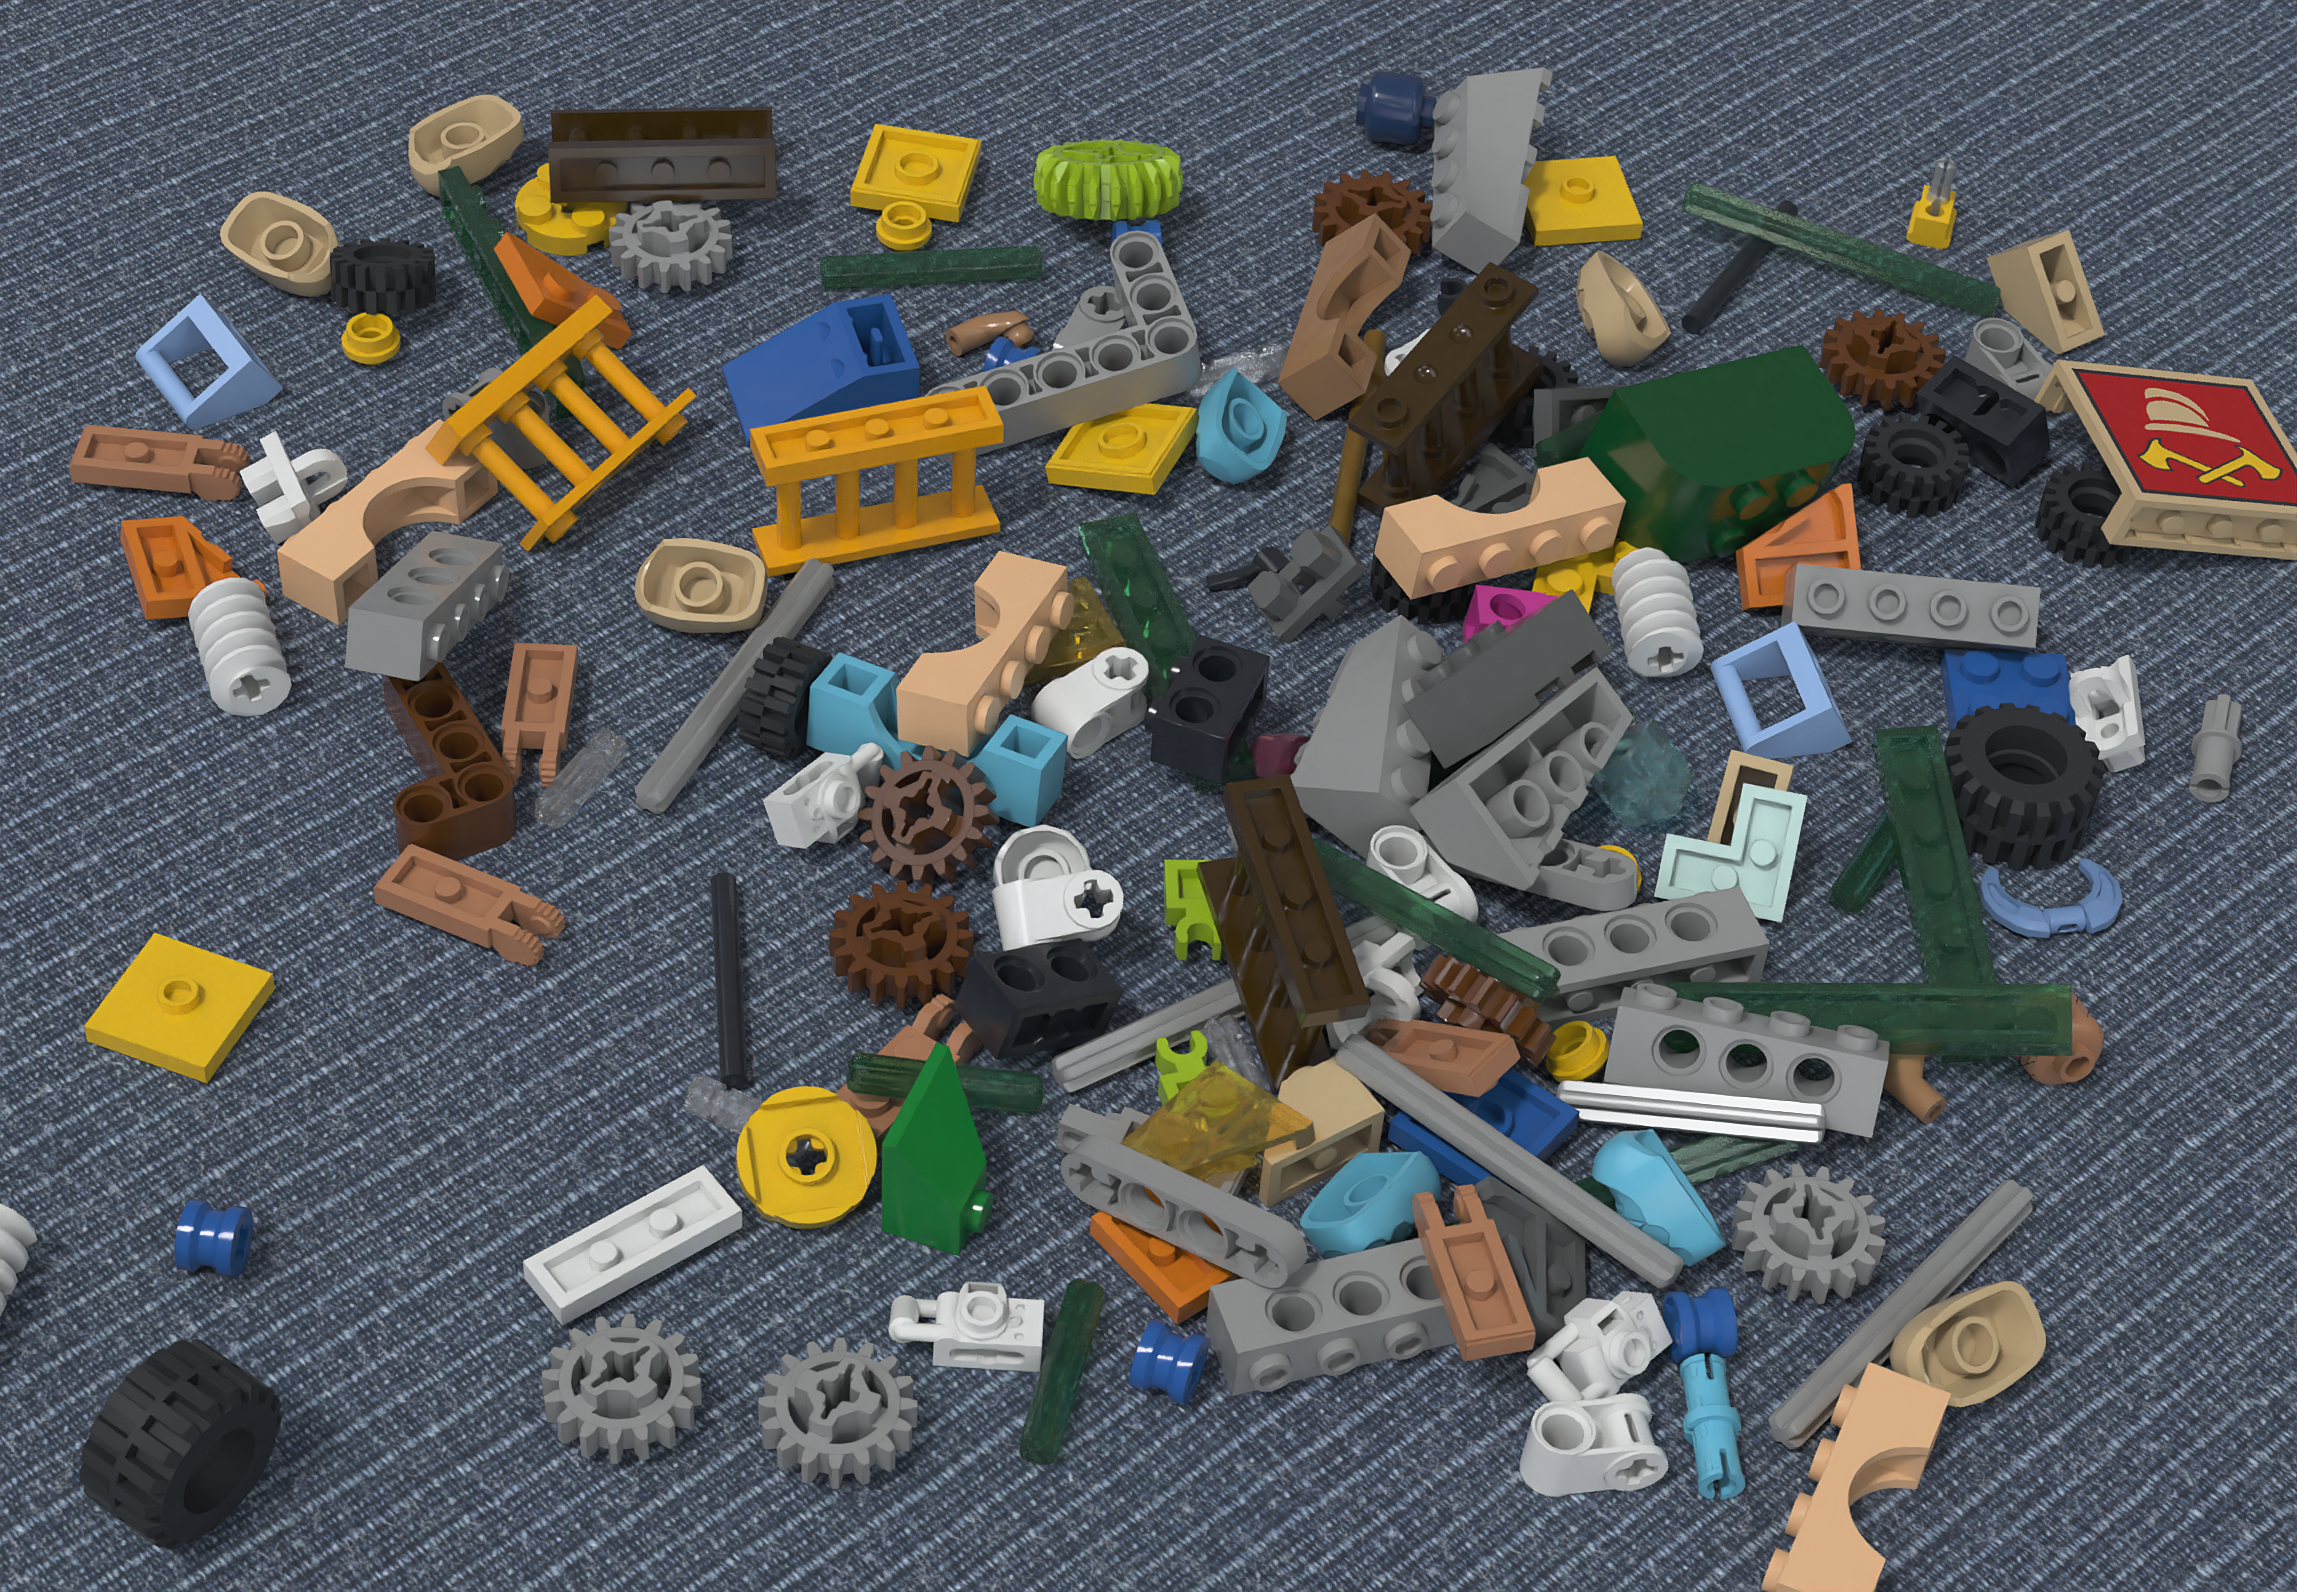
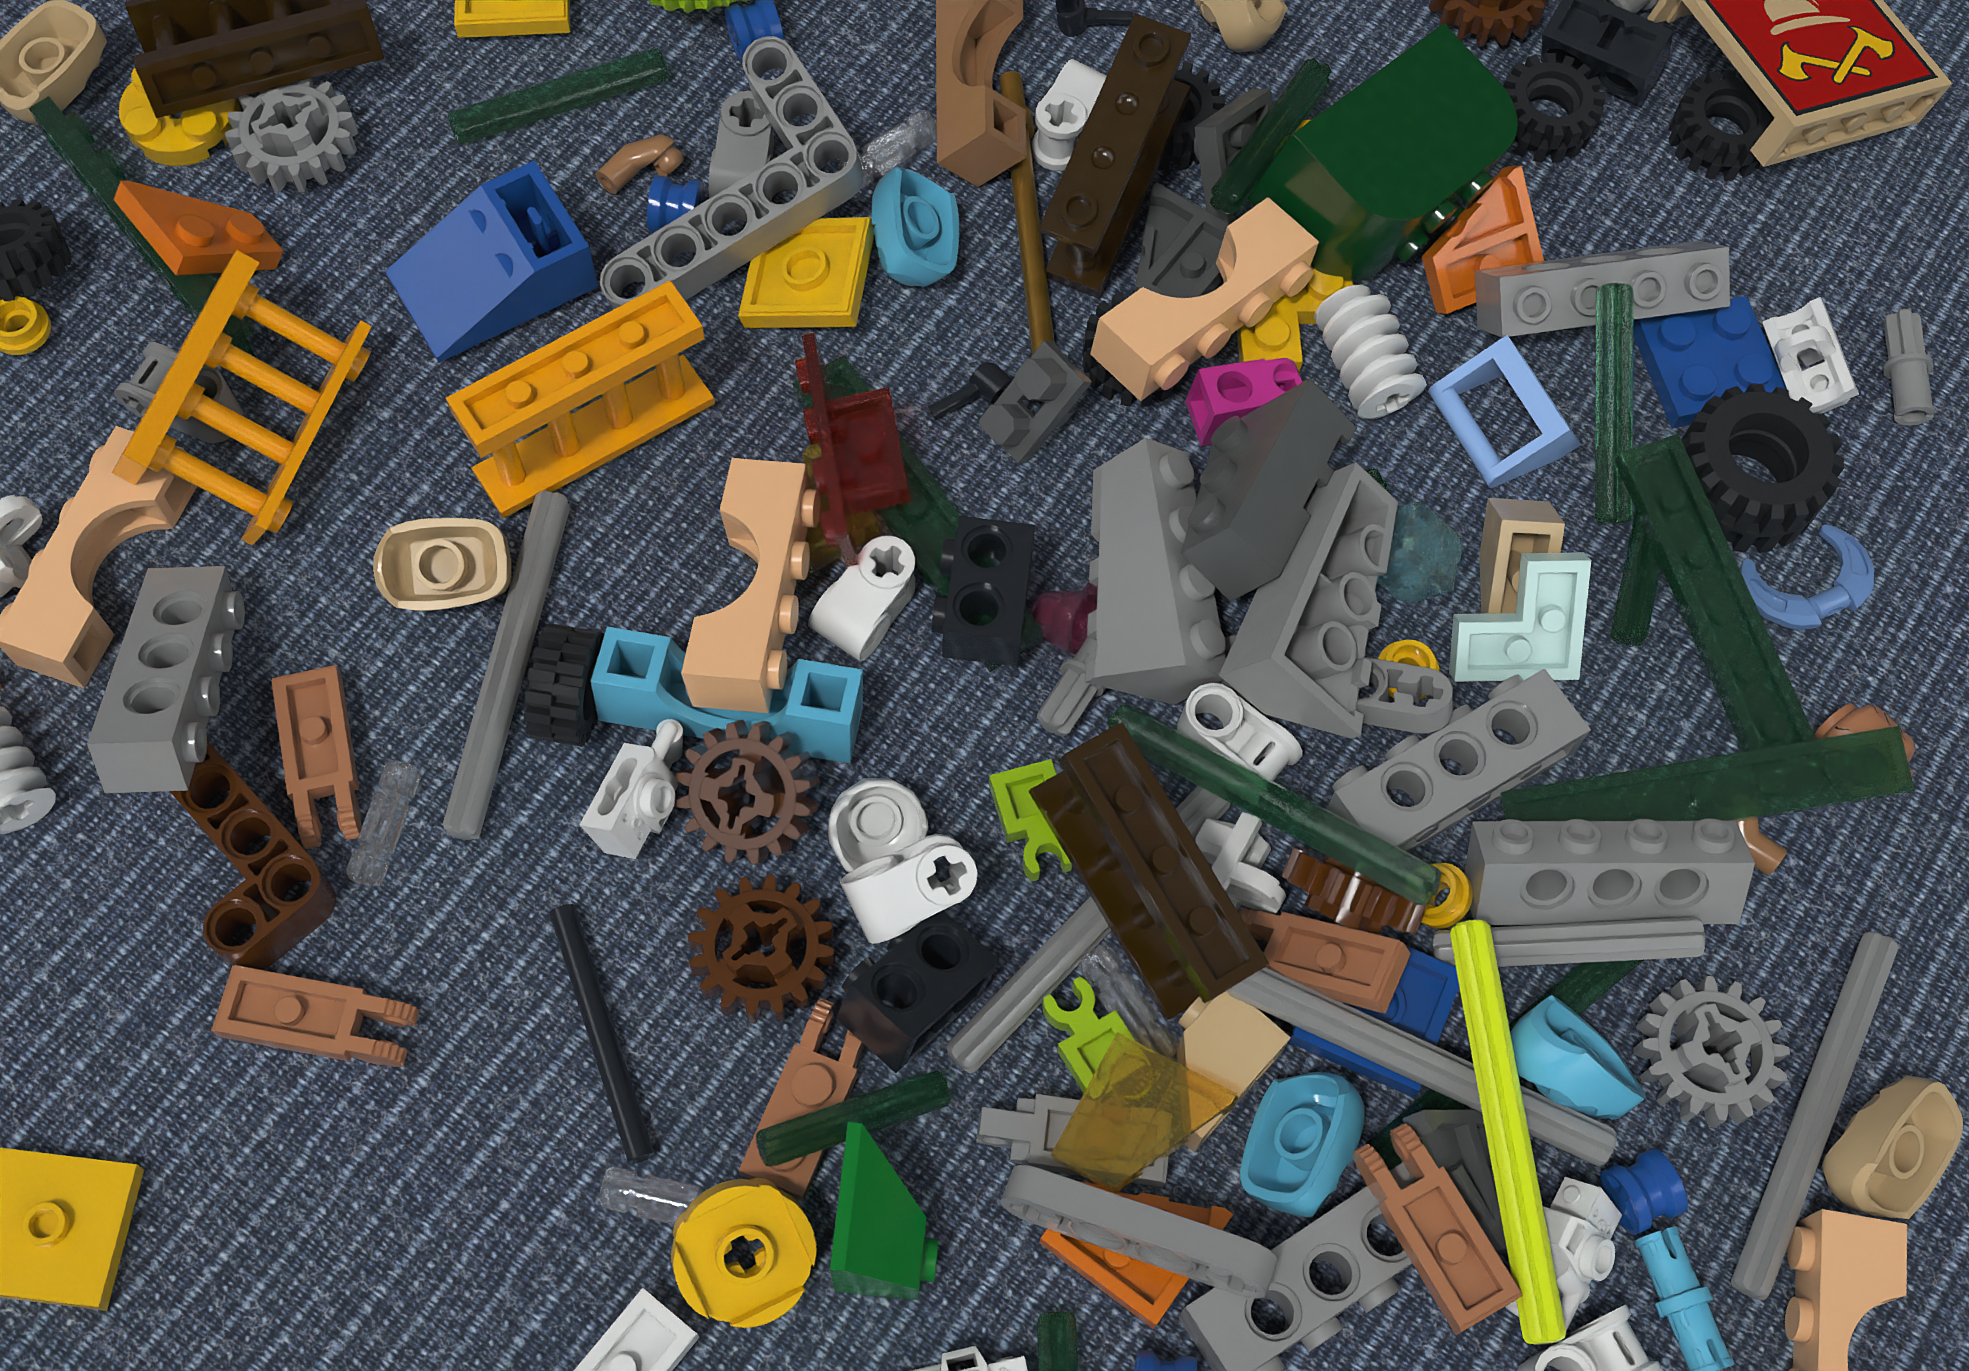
camera: 15 degrees left, 20 degrees up
(904, 226) = (518, 53): yellow plate -> none
(1117, 574) = (859, 450): none -> clear red bracket
(1567, 1218) = (1507, 1133): none -> neon yellow axle
(1886, 692) = (1613, 399): none -> clear green axle

